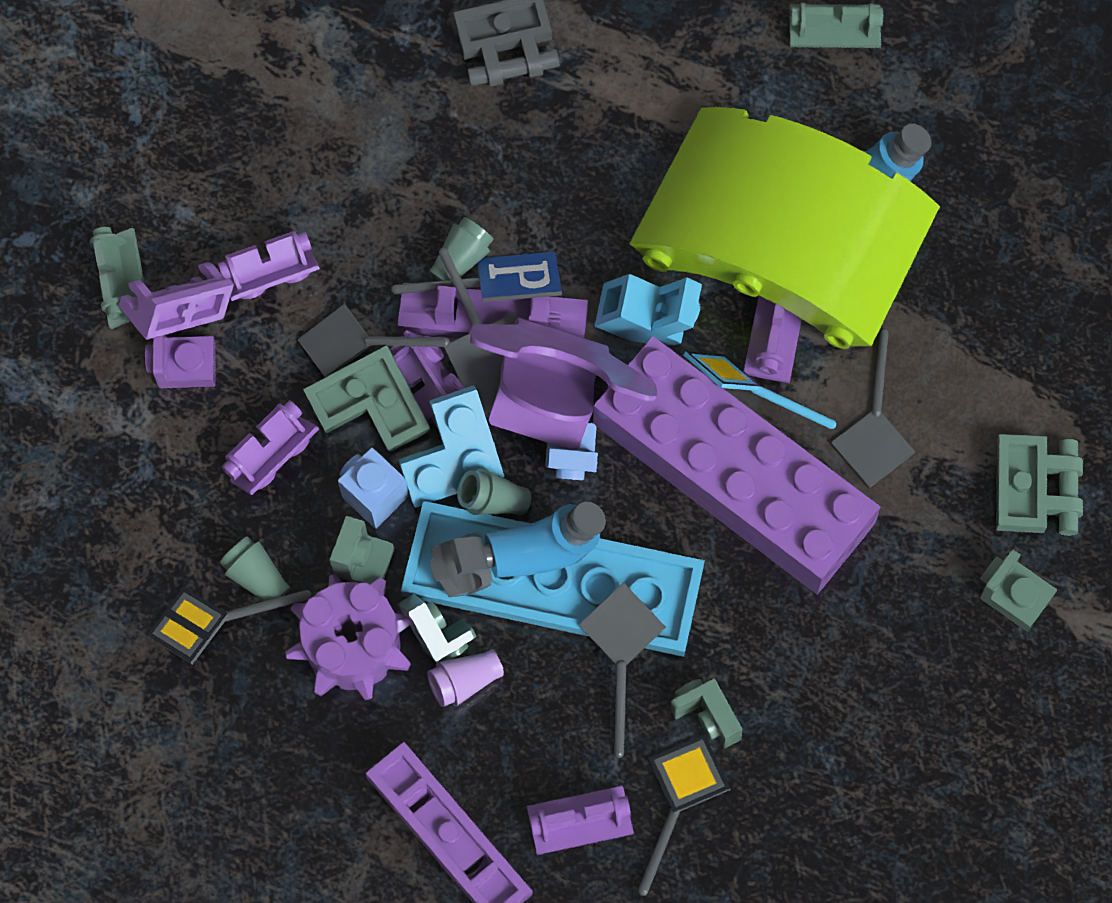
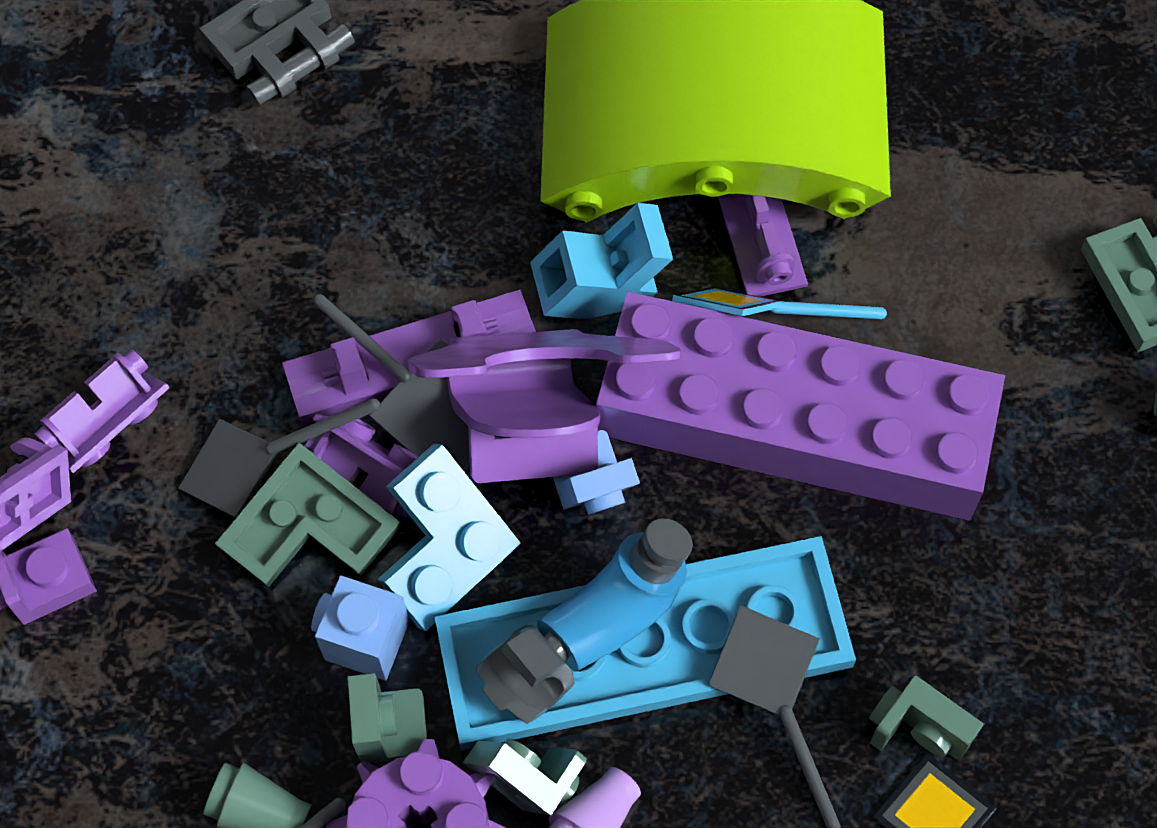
camera: 25 degrees left, 5 degrees down
(255, 464) = (194, 665): medium lavender hinge -> none
(466, 245) = (344, 283): sand green cone -> none
(489, 494) = (513, 570): sand green cone -> none
(505, 278) = (406, 305): piece -> none
(873, 443) = (937, 314): dark grey piece -> none

